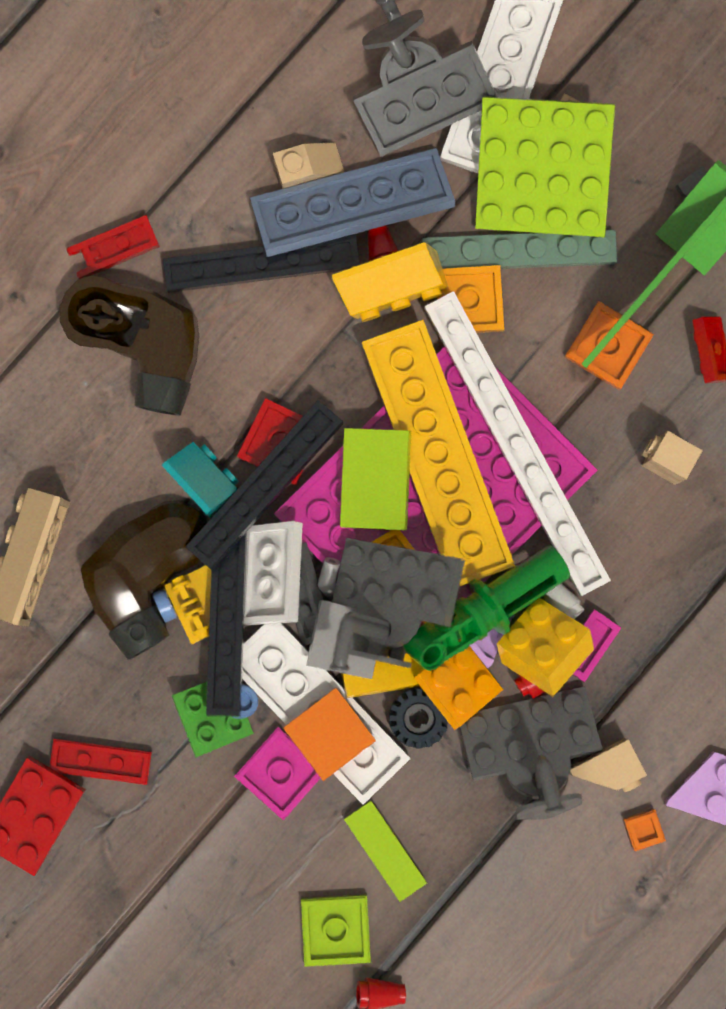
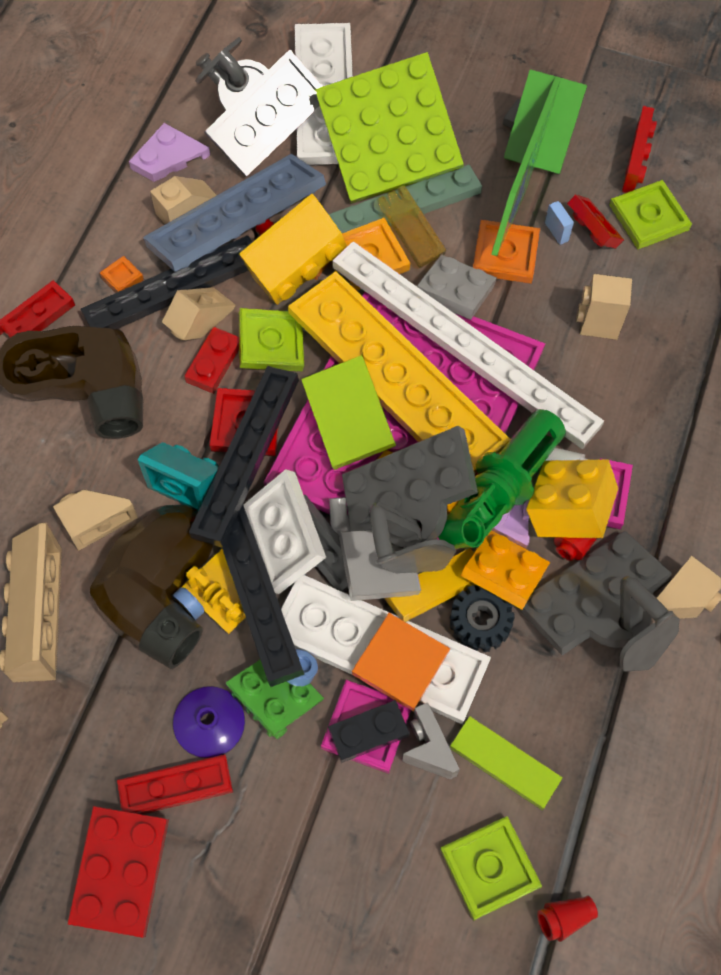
camera: 15 degrees left, 20 degrees down
(104, 486) = (93, 515): none -> tan slope
(161, 705) = (210, 739): none -> dark purple dish
(216, 229) = (121, 275): none -> orange tile
(273, 360) = (213, 360): none -> red plate
(275, 305) = (196, 312): none -> tan slope
(278, 782) = (368, 731): none -> black plate
(309, 94) = (166, 153): none -> lavender wing
(327, 822) = (435, 753): none -> light grey slope
(334, 361) = (270, 340): none -> lime tile
(523, 288) = (412, 227): none -> clear yellow hinge
(538, 372) = (457, 286): none -> light grey plate
(675, 337) = (559, 222): none -> light blue tile

